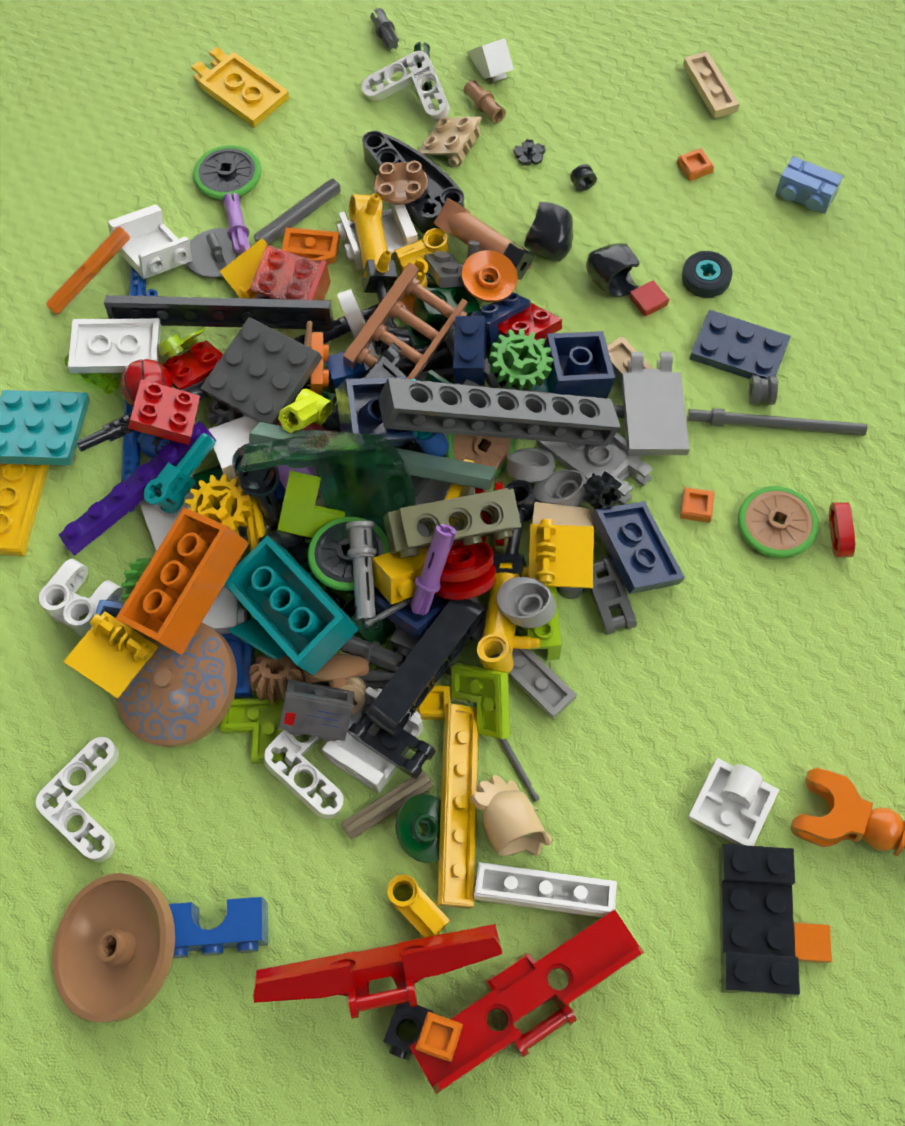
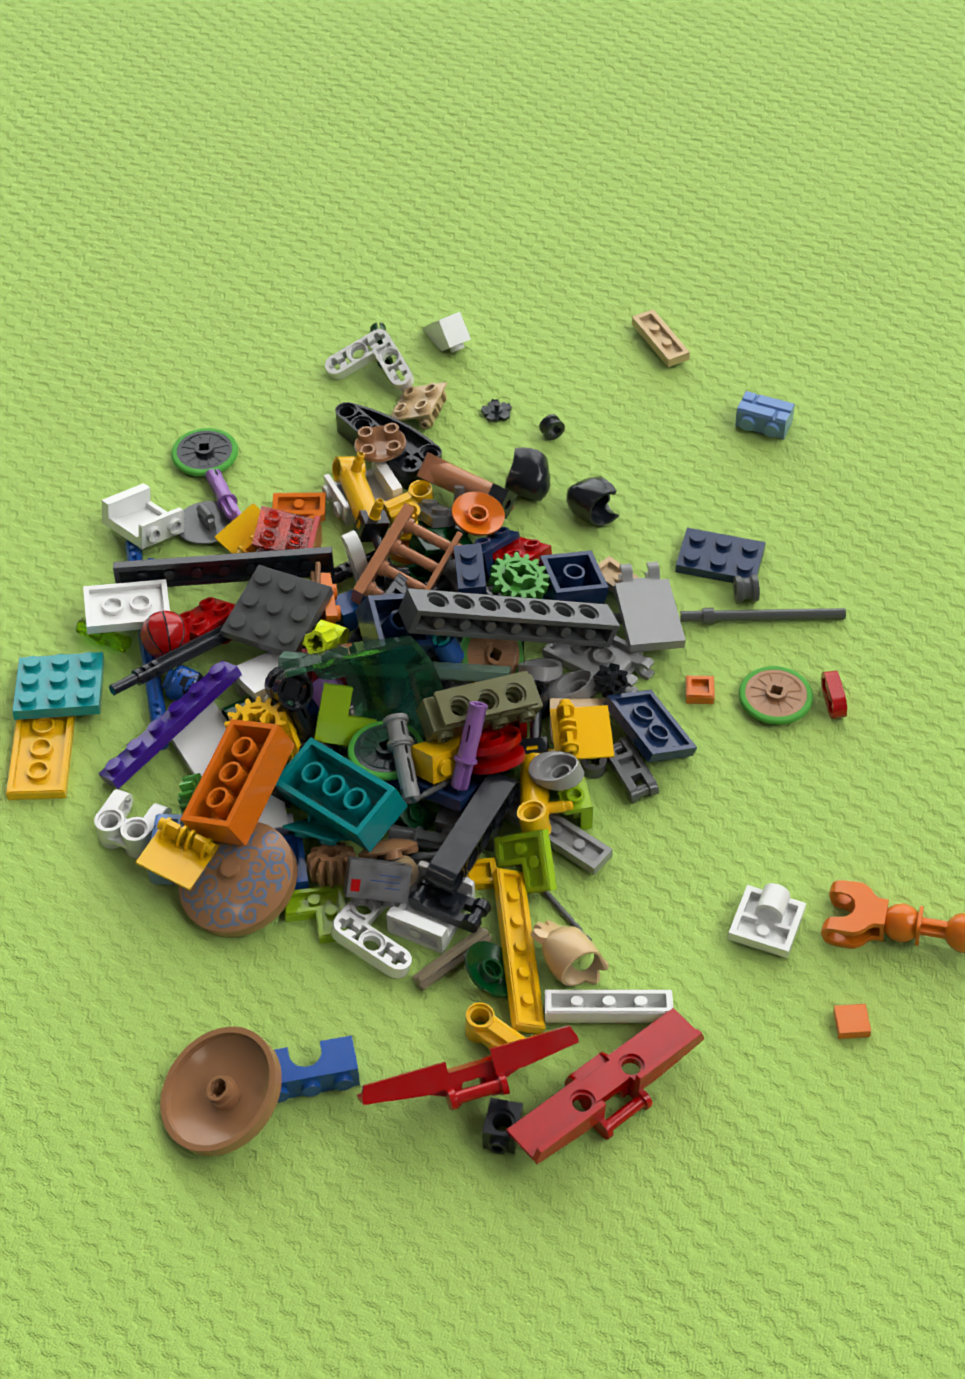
camera: 10 degrees left, 15 degrees down
(68, 805) = (152, 988): white beam -> none
(88, 270) = (86, 546): orange axle -> none
(164, 412) = (191, 650): plate -> none
(175, 345) = (186, 600): lime plate -> none
(176, 480) = (209, 711): teal connector -> none
(221, 413) = (240, 653): dark grey gear -> none
(240, 86) = (203, 376): yellow tile -> none
(298, 211) = (282, 479): dark grey axle -> none
(385, 29) = (338, 314): dark grey axle -> none
(439, 1037) = (532, 1117): orange tile -> none
(484, 101) = (446, 369): medium nougat pin -> none
(649, 298) = (629, 524): tile -> none
(695, 164) = (656, 408): orange tile -> none
(710, 262) = (672, 506): black bush -> none
(757, 920) = (801, 1005): black piece -> none

